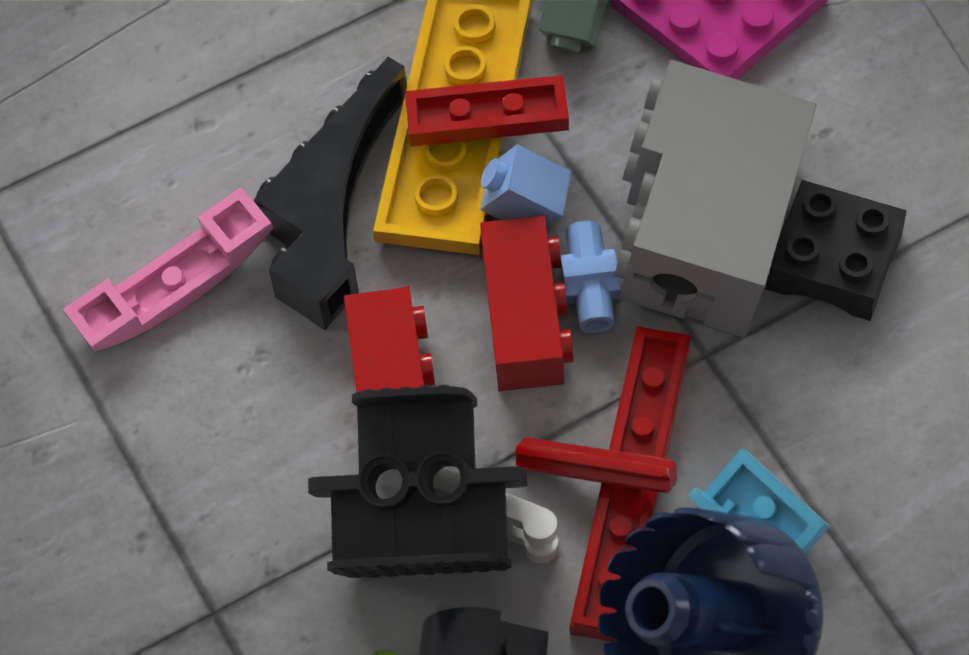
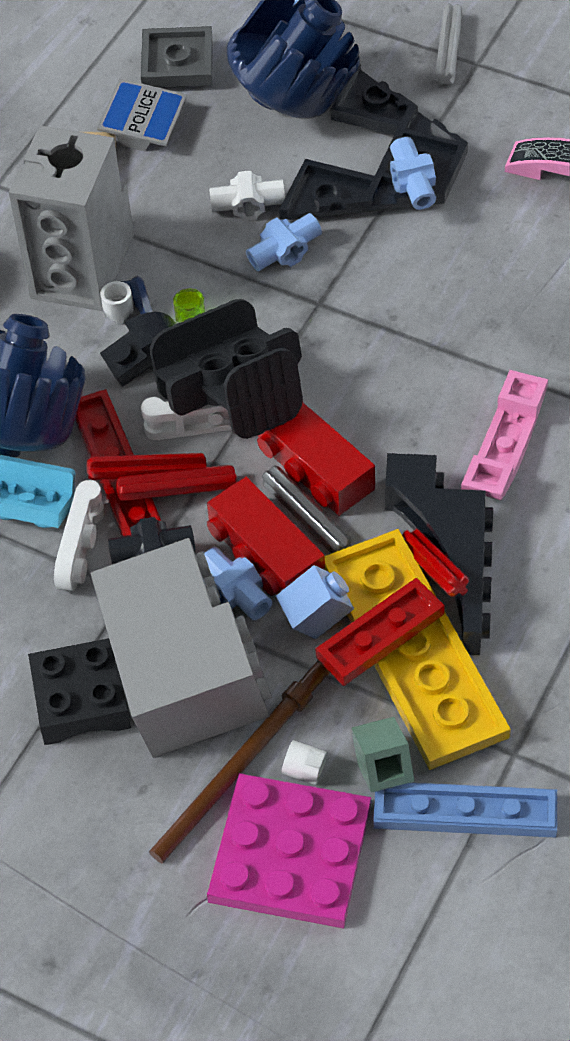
camera: 145 degrees right, 5 degrees down
(371, 154) = (436, 563): none -> red axle
(447, 320) = (305, 510): none -> dark grey axle
(572, 428) = (175, 482): none -> red axle
(612, 127) = (295, 699): none -> reddish brown bar
(649, 56) = (304, 762): none -> white hose
(658, 348) = (146, 537): none -> black axle
(730, 427) = (78, 535): none -> white plate

